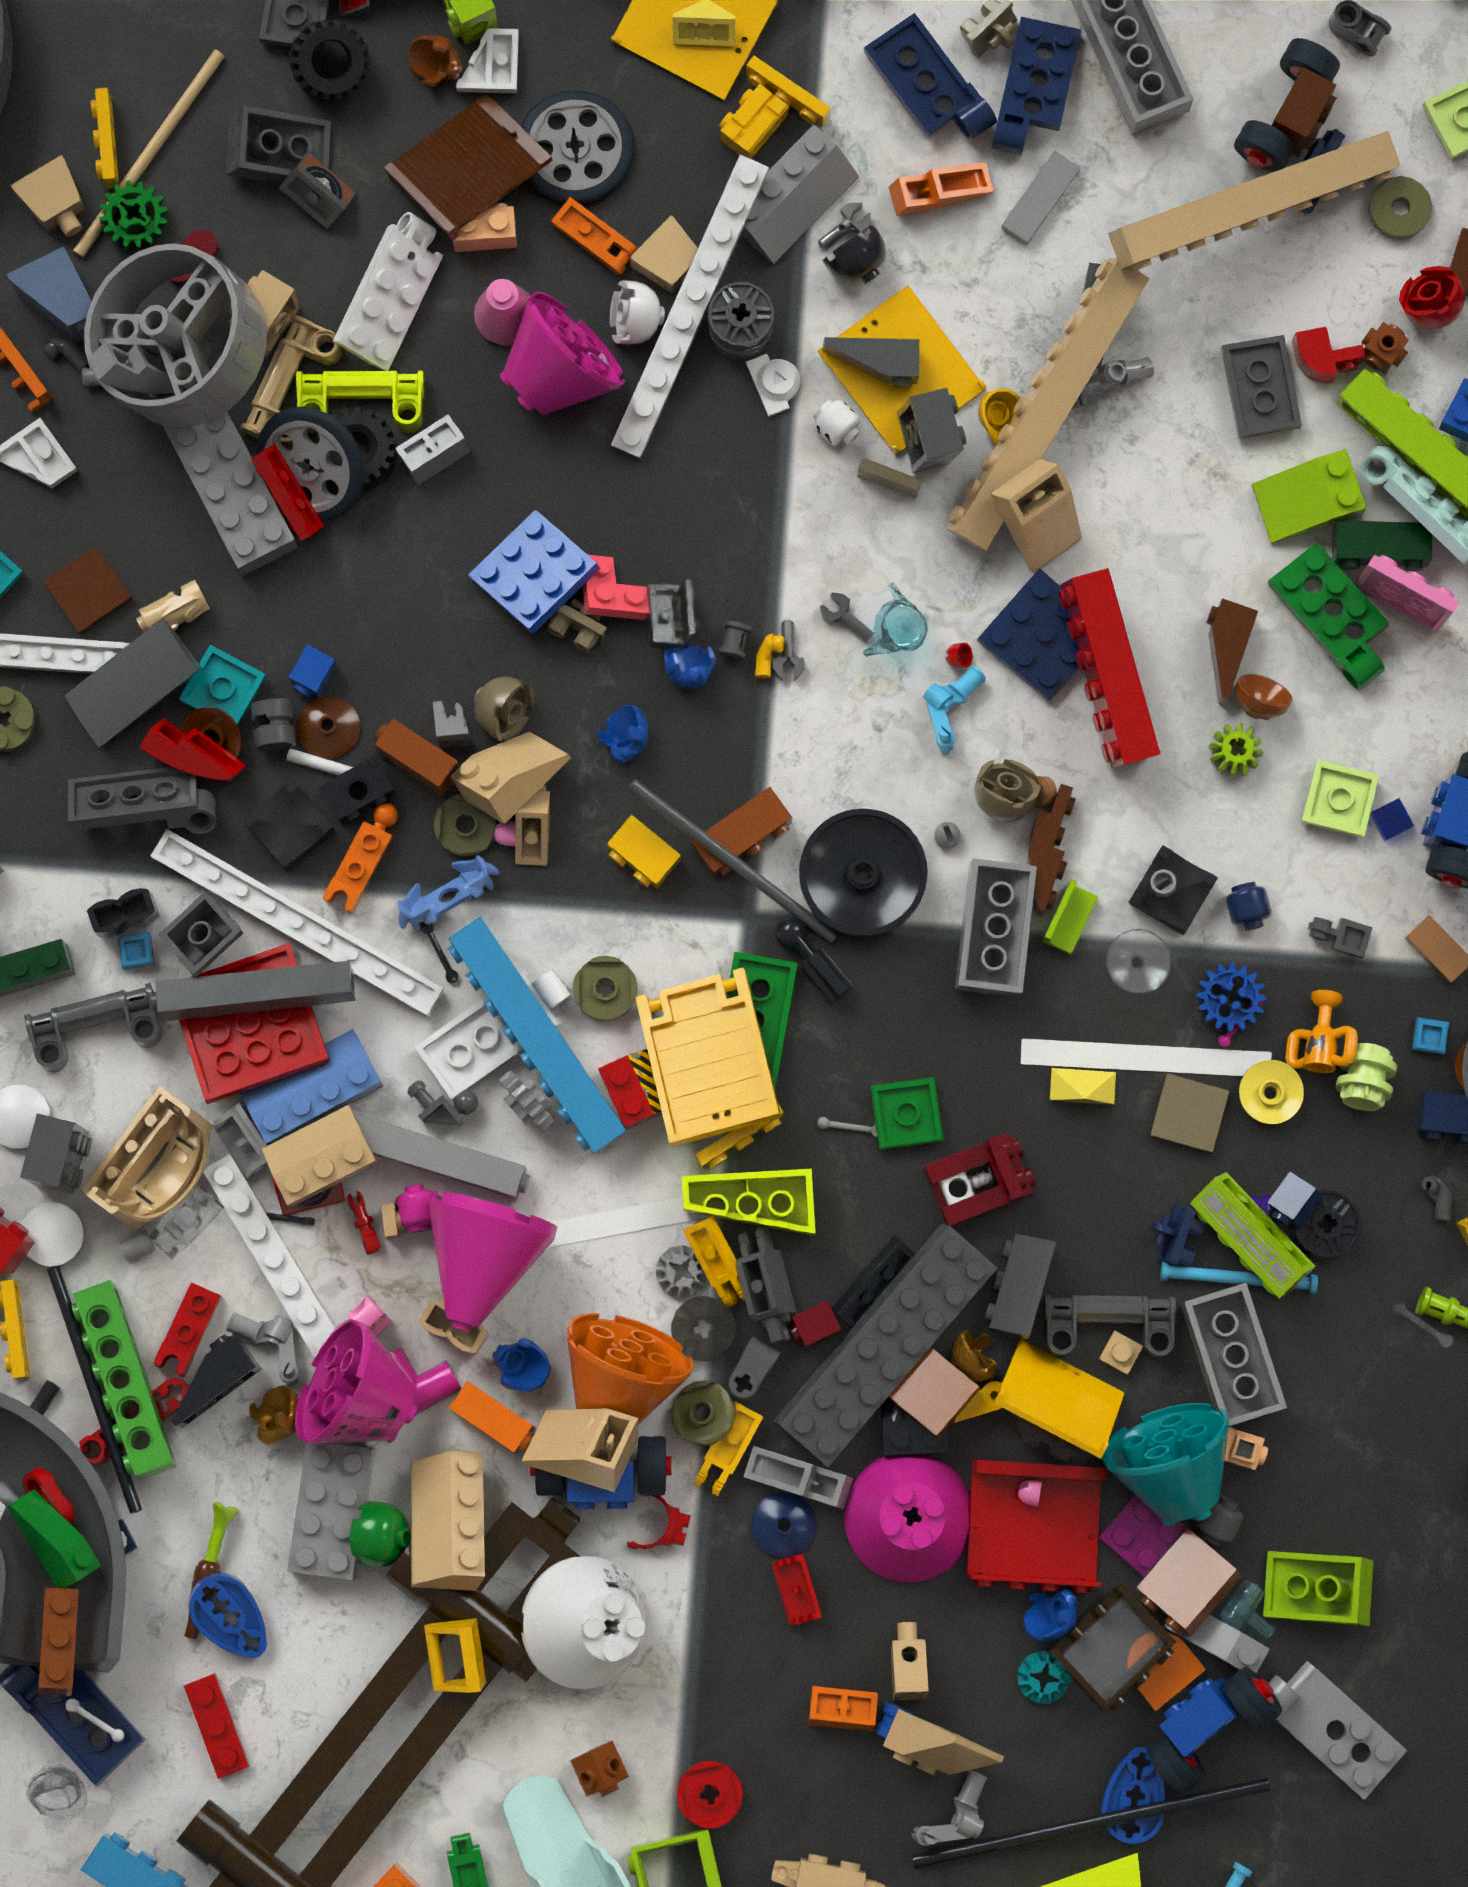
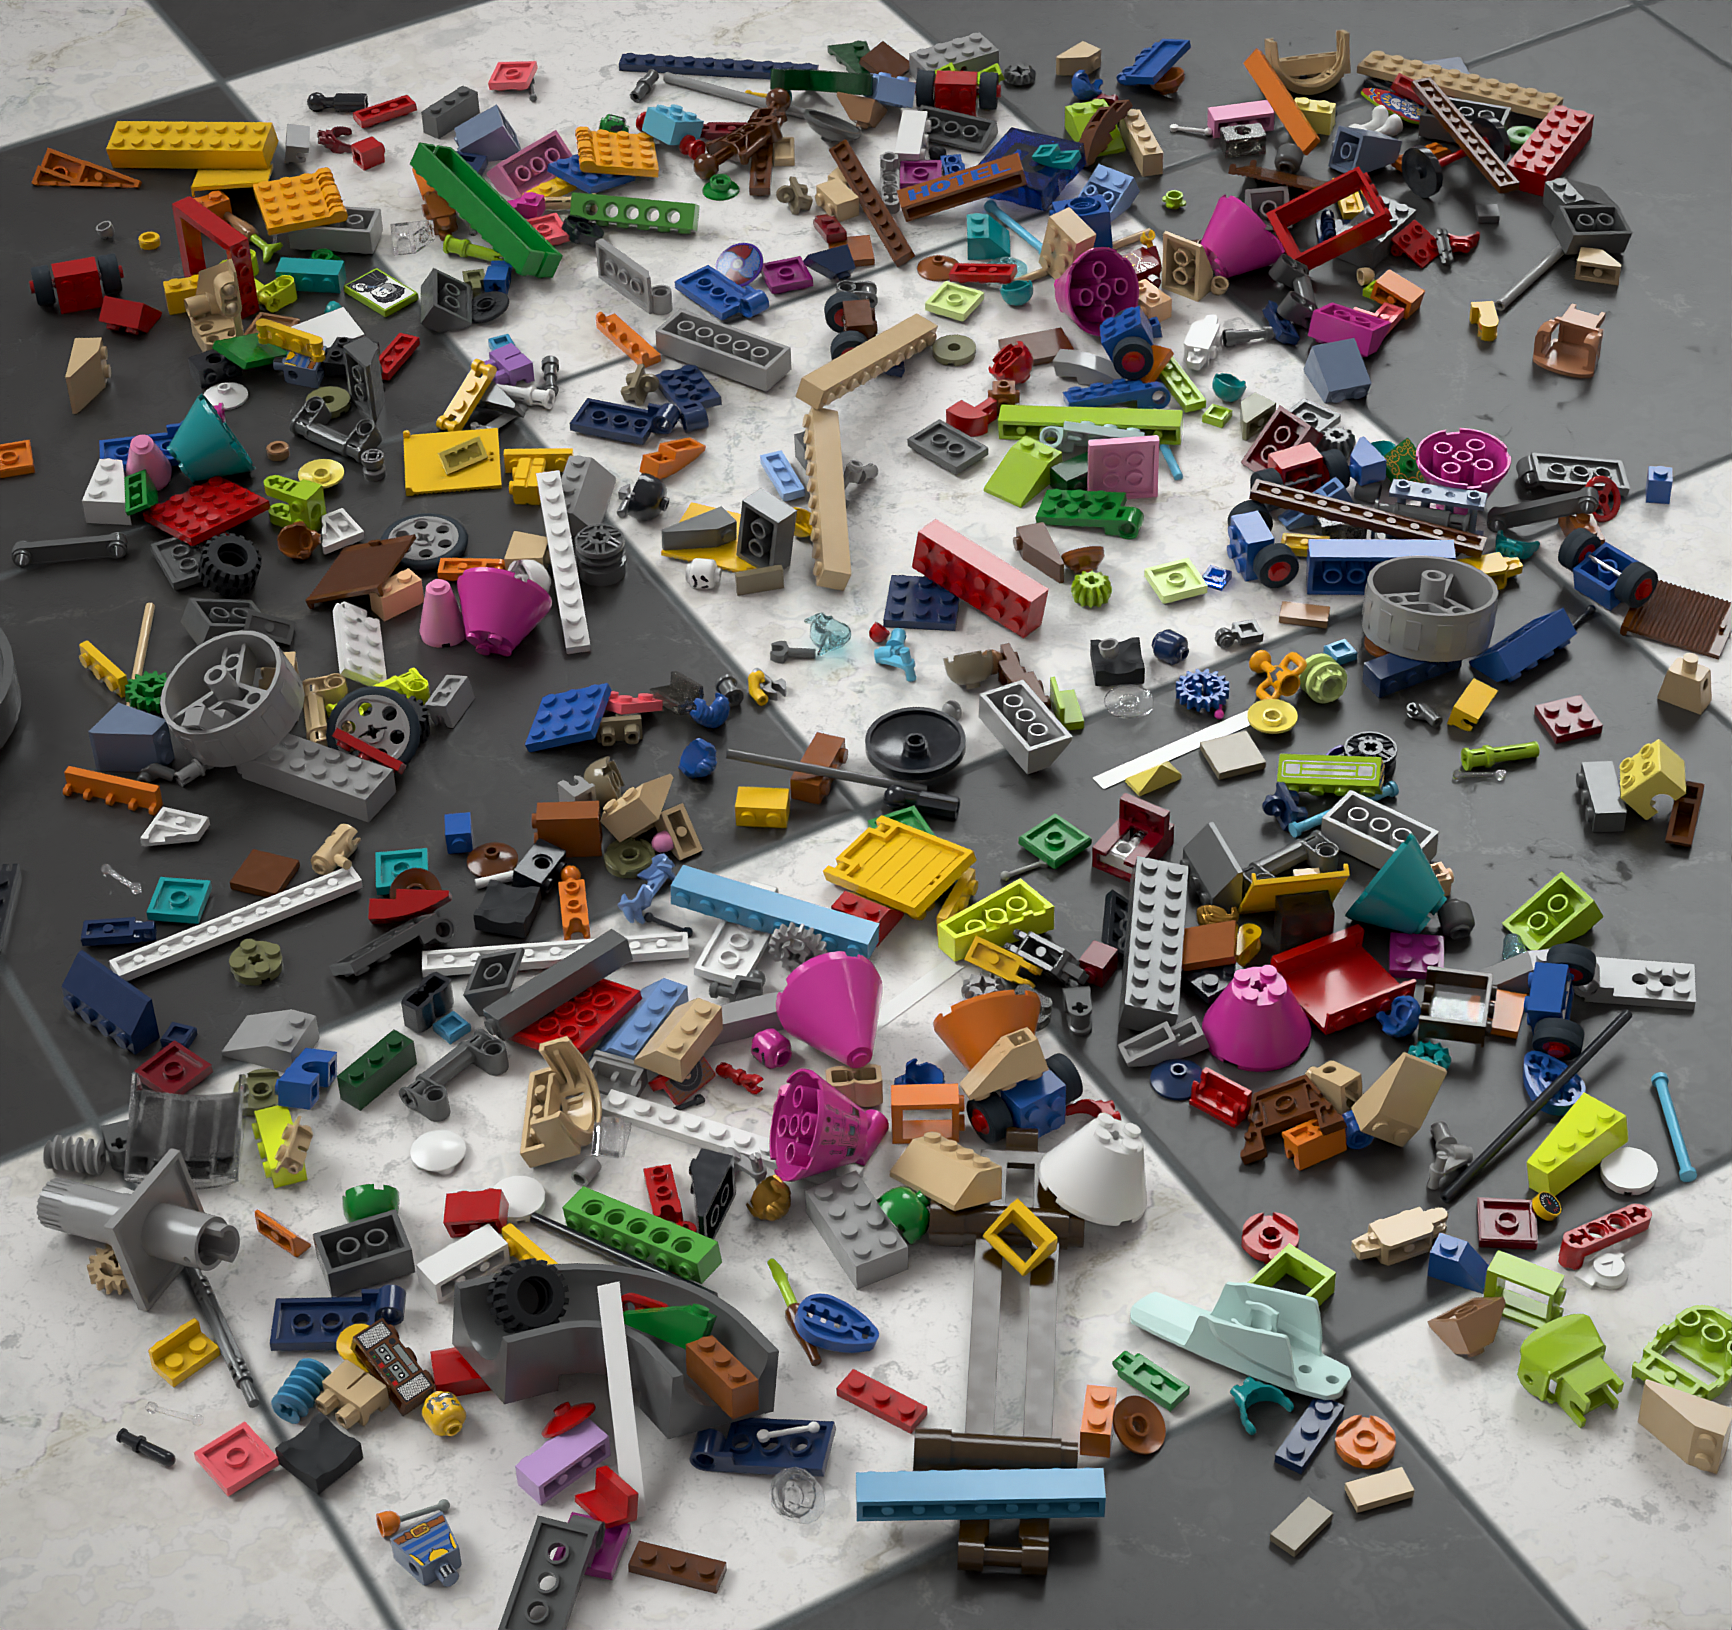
camera: 30 degrees left, 40 degrees down
(51, 196) = (83, 708): tan torso -> none
(56, 1154) = (487, 1131): dark grey brick -> none
(132, 683) = (338, 889): dark grey slope -> none
(273, 724) = (454, 867): dark grey wheel -> none
(391, 1221) = (757, 1062): tan plate -> none
(592, 1002) = (810, 876): olive plate -> none
(600, 1769) = (1181, 1260): dark orange brick -> none
(716, 1425) = (1073, 1031): olive tile -> none
(730, 1450) = (1101, 1054): yellow hinge -> none
(775, 382) = (645, 579): white piece -> none
(848, 1653) = (1285, 1107): none -> reddish brown wing
(1030, 1491) = (1323, 964): bright pink hinge -> none
(1039, 512) = (869, 538): tan slope -> none
(1040, 198) = (737, 437): light grey tile -> none
(1040, 308) = (782, 475): none -> light blue plate
(1188, 1583) = (1471, 946): brick -> none
(1294, 1201) = (1339, 738): brick -> none

